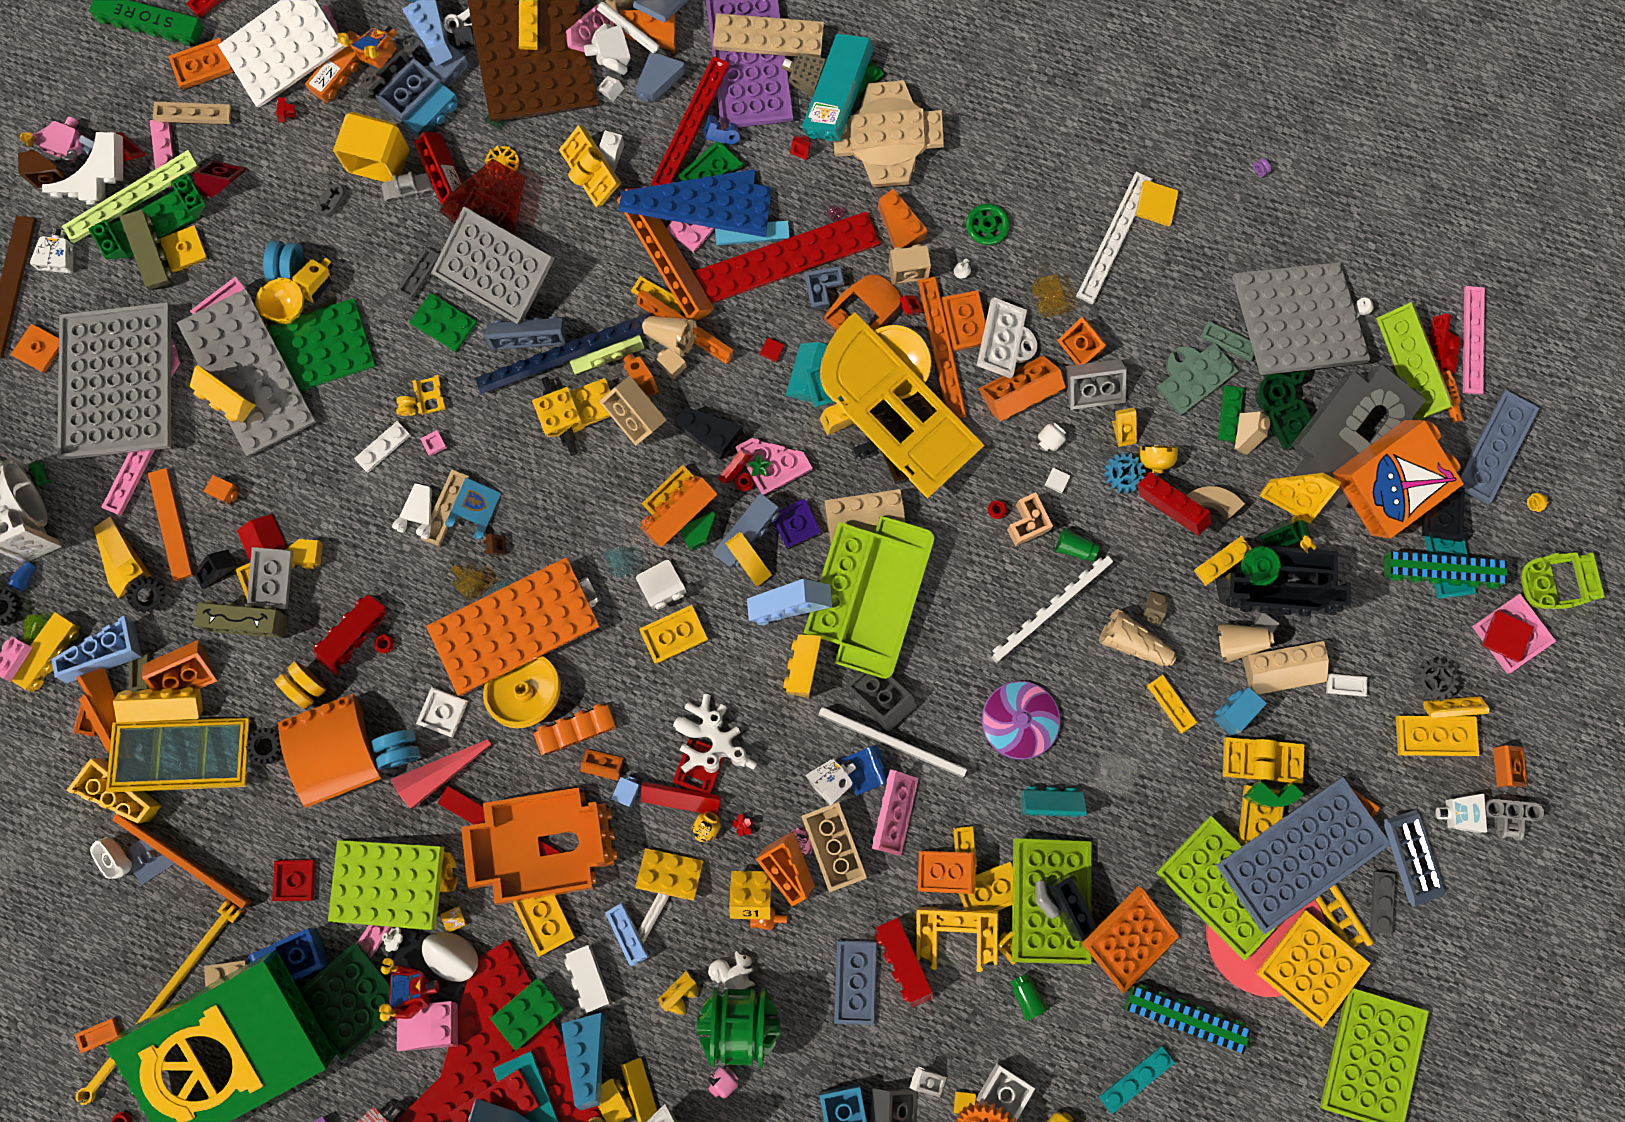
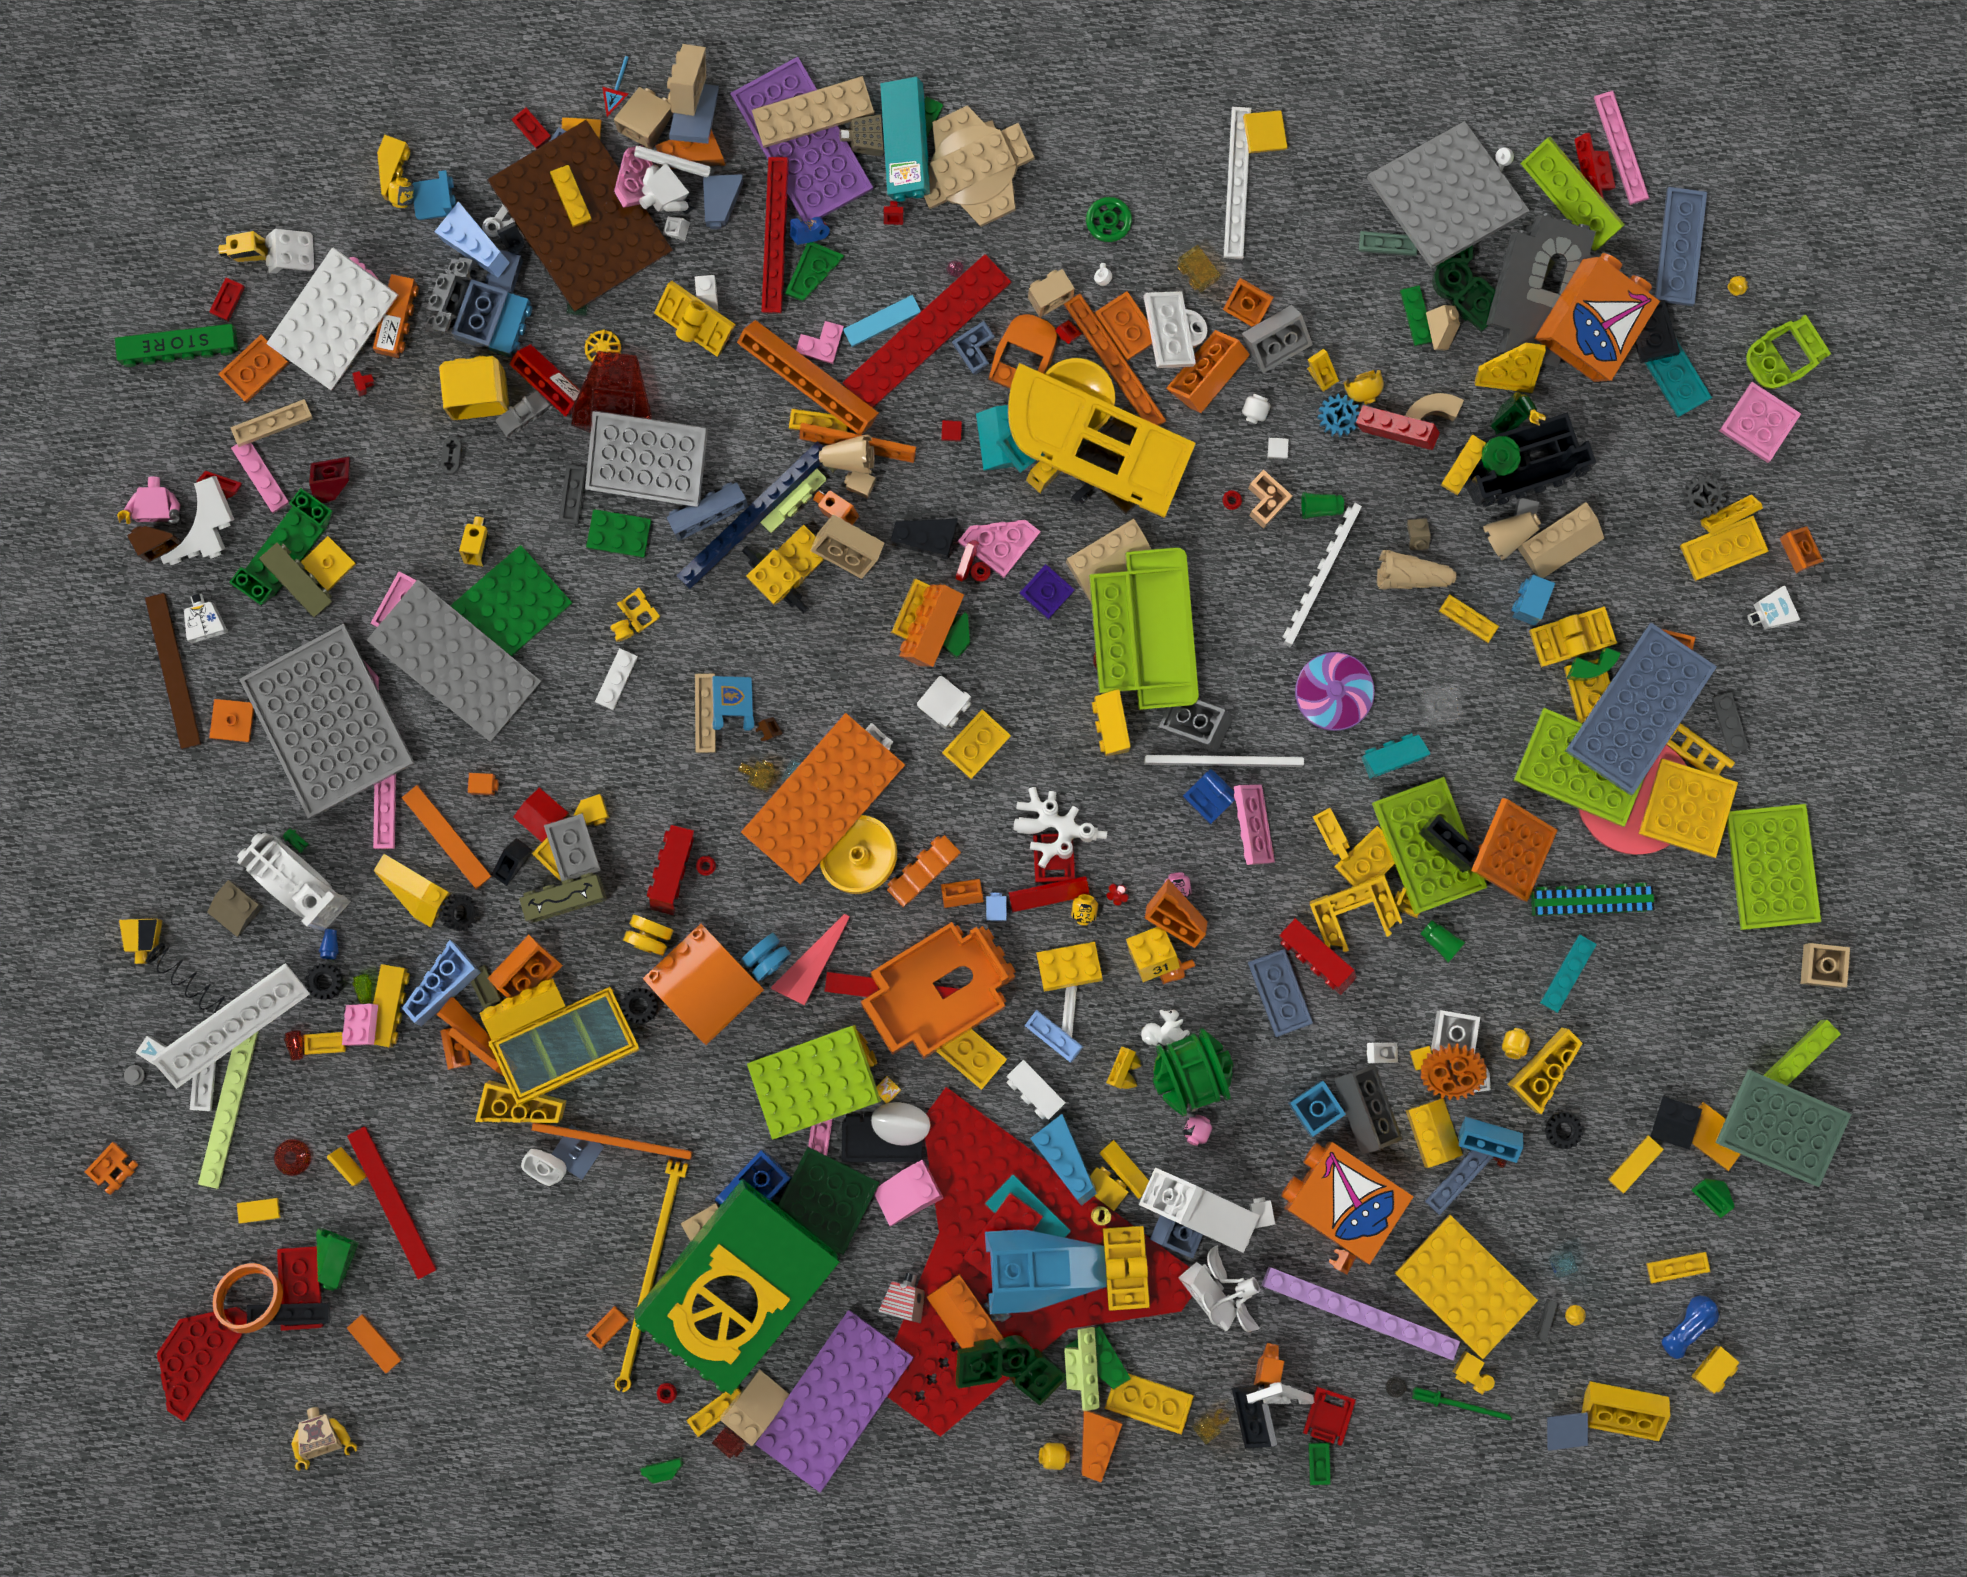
camera: 25 degrees left, 5 degrees up
(88, 142) = (186, 497): sand blue tile -> none
(131, 195) = (253, 532): yellowish green plate -> none
(220, 395) = (445, 693): yellow slope -> none
(280, 301) = (454, 577): yellow cylinder -> none
(282, 260) = (438, 536): dark azure wheel -> none
(294, 880) = (722, 1116): red tile -> none
(373, 47) = (426, 284): torso -> none
(392, 939) = (840, 1130): white plant -> none
(408, 991) = (878, 1167): torso -> none
(416, 510) = (679, 725): white flag -> none
(433, 443) = (665, 655): bright pink plate -> none
(442, 712) = (790, 906): white tile -> none
(527, 1013) = (994, 1143): green plate -> none
(617, 562) = (893, 698): clear light blue brick -> none
(715, 201) = (833, 306): blue wing -> none
(748, 559) = (1018, 644): yellow tile -> none
(751, 525) = (1004, 617): sand blue brick -> none
(759, 466) = (989, 551): green plant -> none
(788, 601) = (1074, 669): light blue wedge -> none
(831, 779) = (1182, 818): white torso -> none
(834, 847) = (1211, 878): tan slope -> none
(899, 220) = (1023, 252): orange wedge -> none
(947, 872) = (1323, 858): orange tile -> none
(1044, 901) = (1422, 847): light grey arm -> none
(1194, 377) = (1369, 292): sand green plate -> none
(1262, 167) = (1353, 53): medium lavender bush -> none
(1347, 685) = (1623, 534): white tile -> none
(1426, 894) = (1720, 641): sand blue piece -> none
(1445, 569) = (1674, 387): brick -> none
(1454, 412) = (1620, 210): orange hinge -> none
(1507, 636) = (1754, 427): red tile -> none
(1512, 822) = (1819, 601): light grey piece -> none

